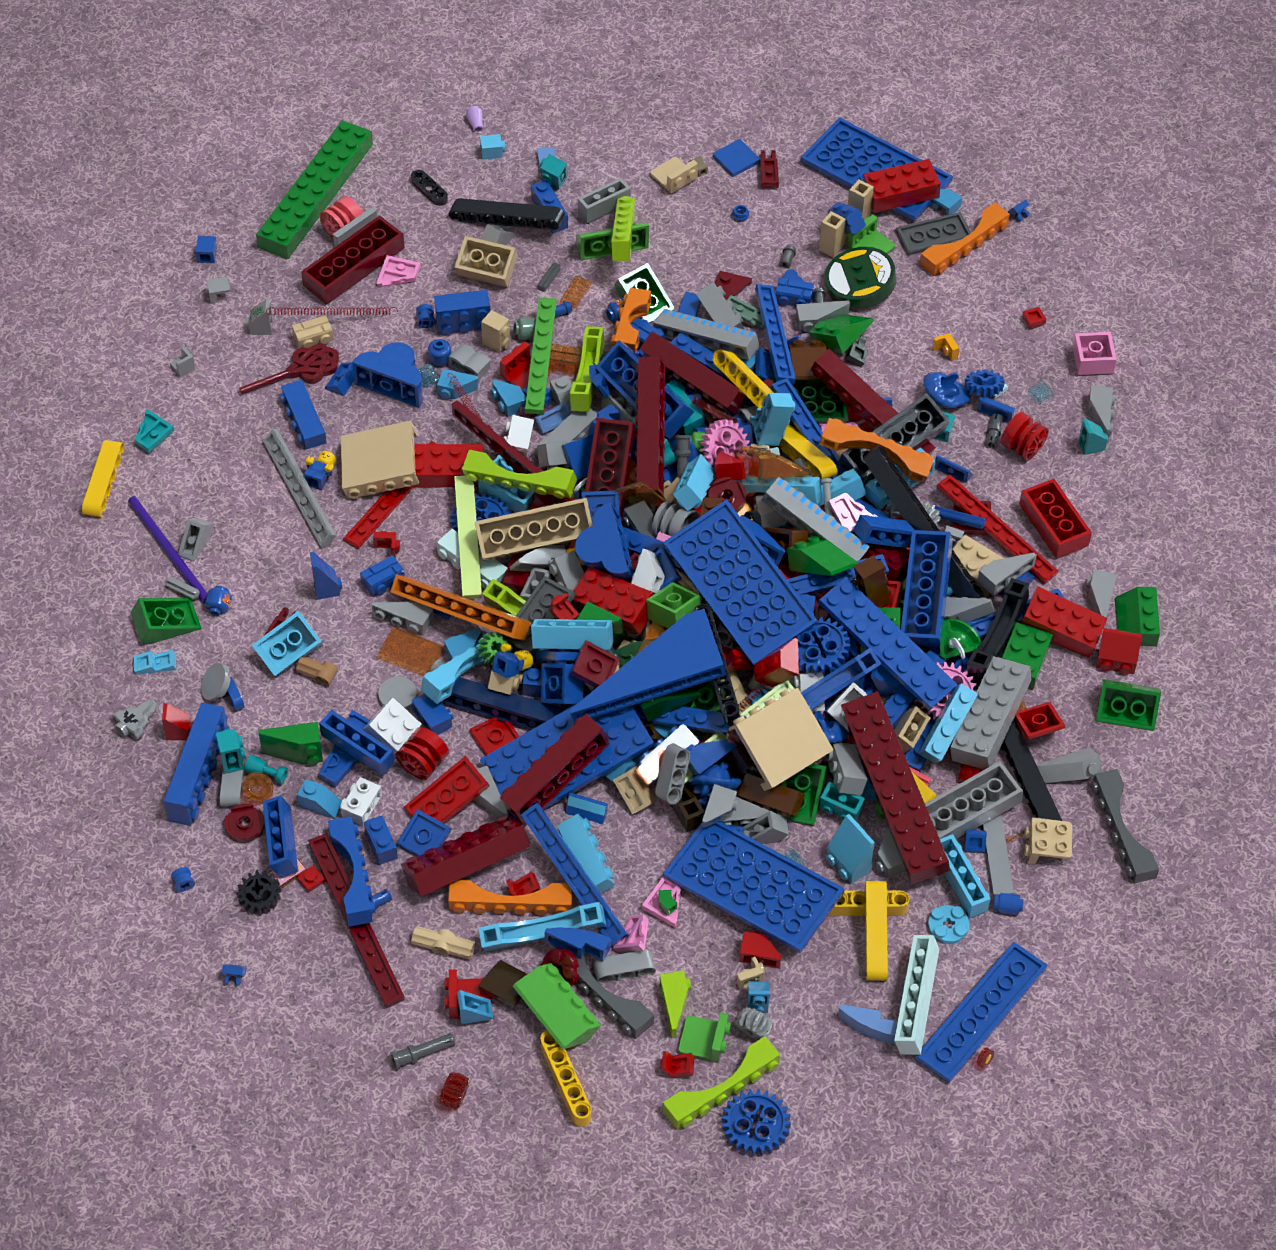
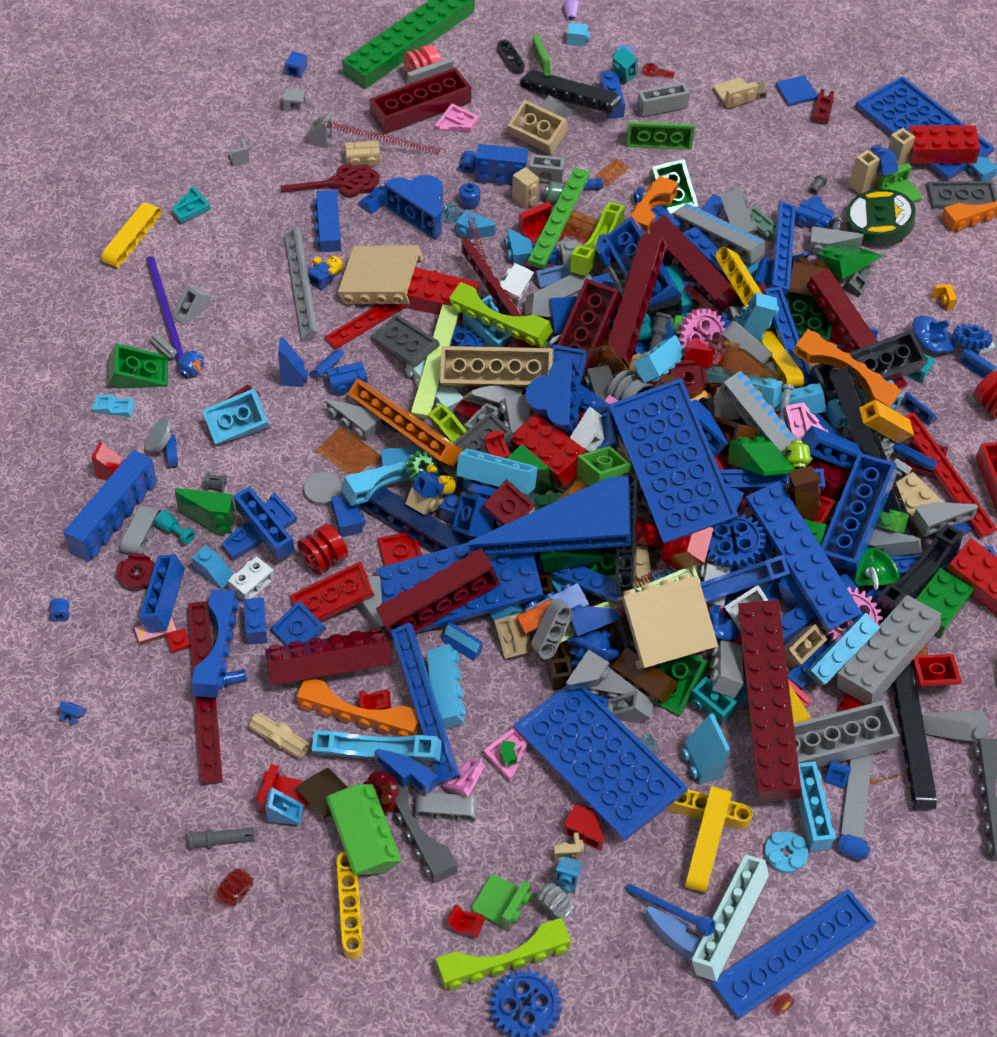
camera: 15 degrees right, 0 degrees up
(134, 719) = (74, 451): light grey rock -> none
(231, 750) = (142, 500): teal brick -> none
(260, 780) = (166, 536): clear orange gear -> none
(267, 894) = (124, 640): black gear -> none
(288, 713) = (215, 481): none -> dark grey bush
(320, 672) = (256, 449): medium nougat piece -> none
(356, 565) = (321, 368): none -> blue tile
(386, 540) = (362, 347): red bracket -> none
(392, 725) = (302, 516): white brick -> none
(428, 523) = (405, 340): none -> dark grey tile
(463, 180) = (541, 55): none -> bright green tile
(468, 361) = (494, 209): light grey brick -> none
(510, 304) = (547, 168): none -> light grey brick
(549, 276) = (591, 154): dark grey axle -> none
(581, 169) = (652, 70): none -> clear red plate
(622, 230) = (667, 126): lime arch -> none
(674, 992) = (486, 852): lime slope -> none
(681, 427) = (670, 307): none -> black tile
(732, 283) = (758, 196): dark red wing -> none
(740, 213) = (785, 137): blue plate -> none
(762, 439) = (738, 334): none -> light grey beam
(855, 546) = (798, 454): none -> lime head
(888, 857) = (743, 769): light grey slope -> none
(897, 1005) = (704, 924): none -> blue piece
(928, 491) = (886, 421): none -> light orange brick
(961, 587) = (893, 520): none -> bright green brick
(994, 431) = (969, 383): dark grey pin -> none
(1048, 839) = (913, 792): tan bracket -> none

